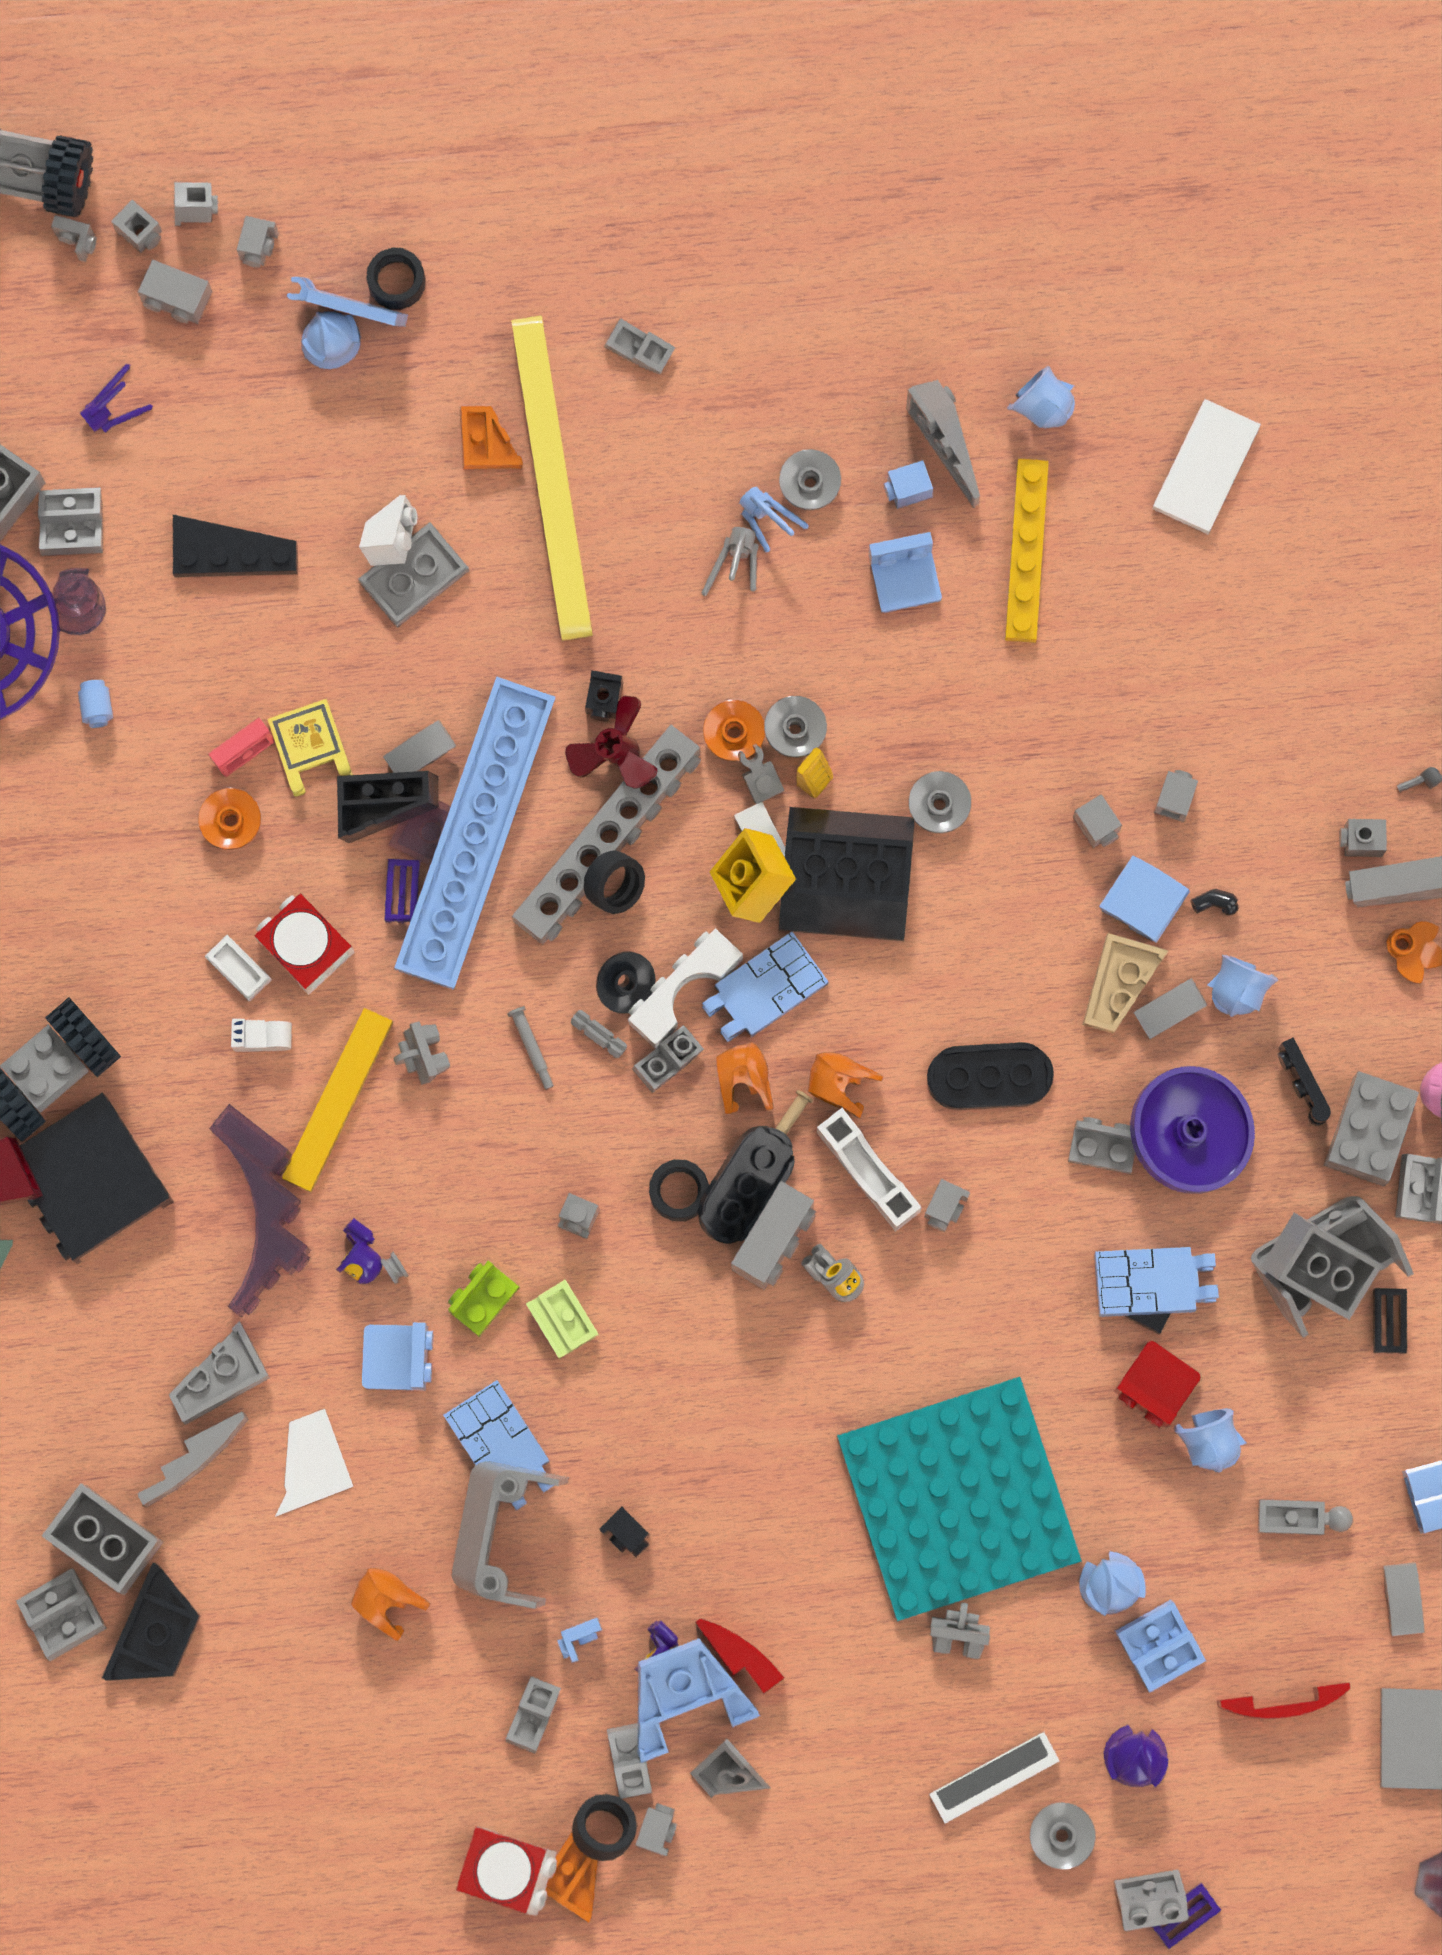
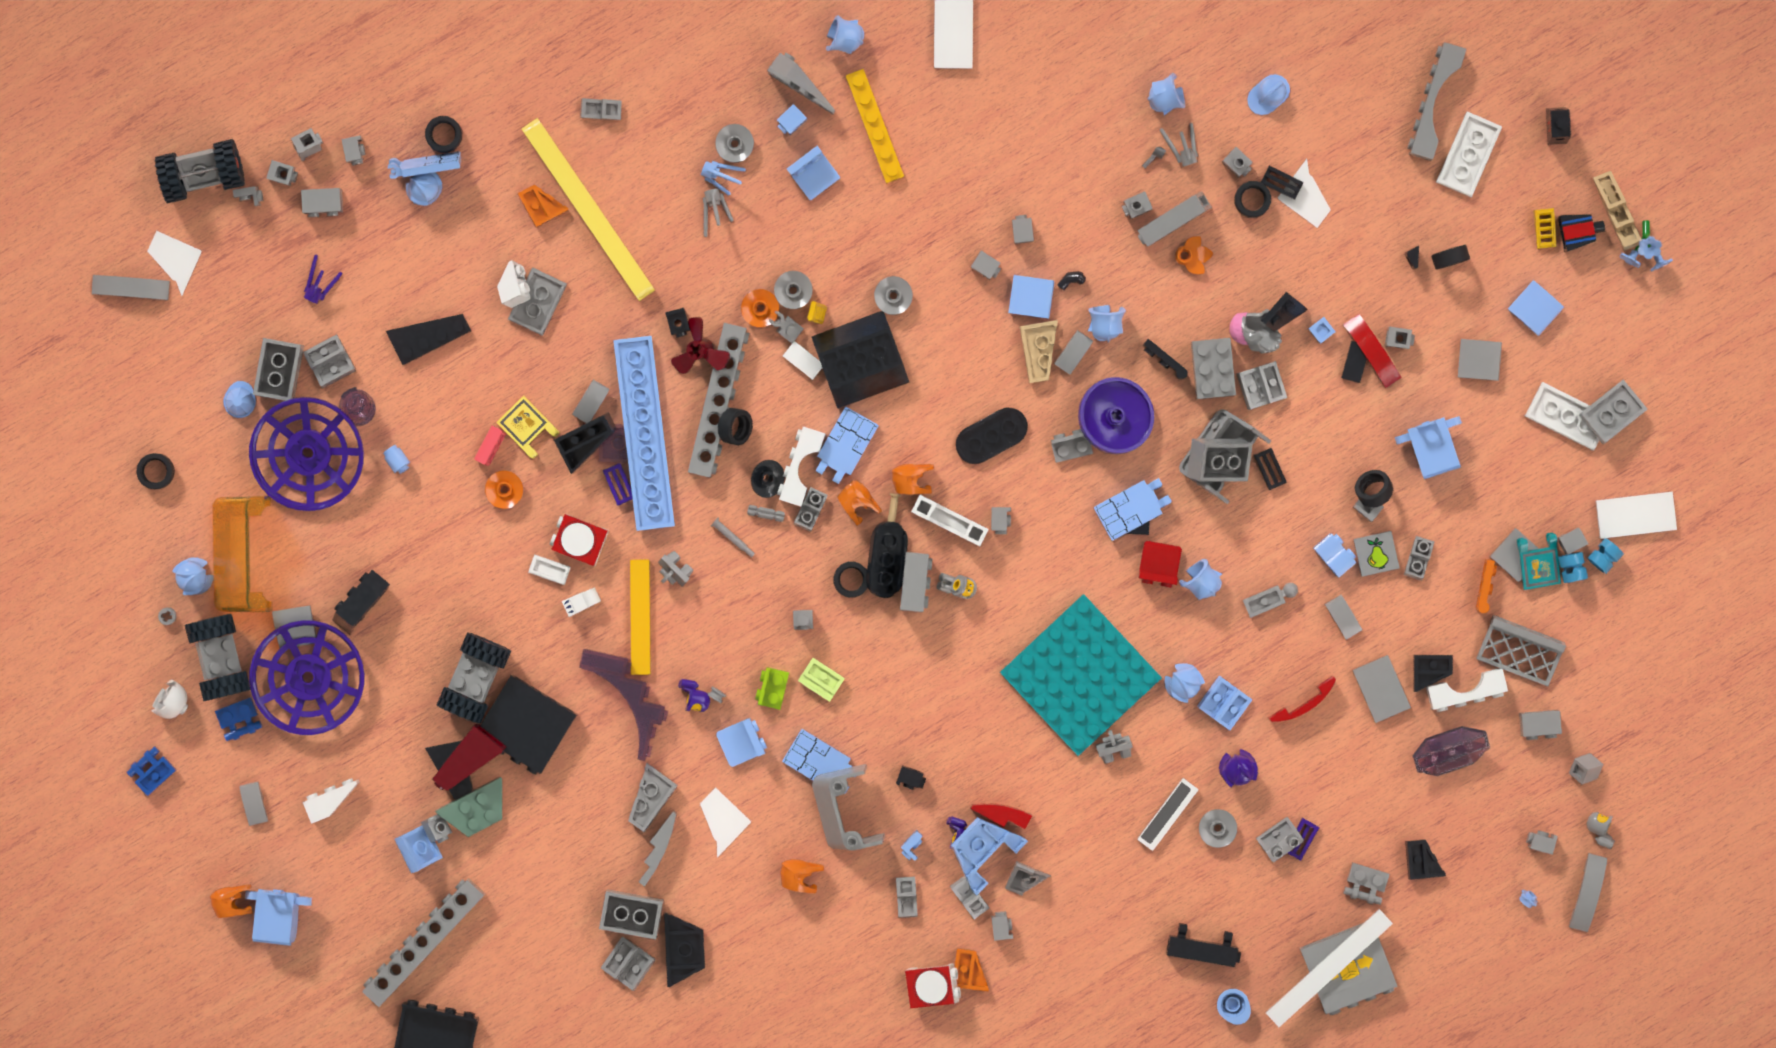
camera: 25 degrees left, 10 degrees up
(619, 1809) = (978, 925): black tyre -> none
(752, 875) = (810, 388): yellow brick -> none

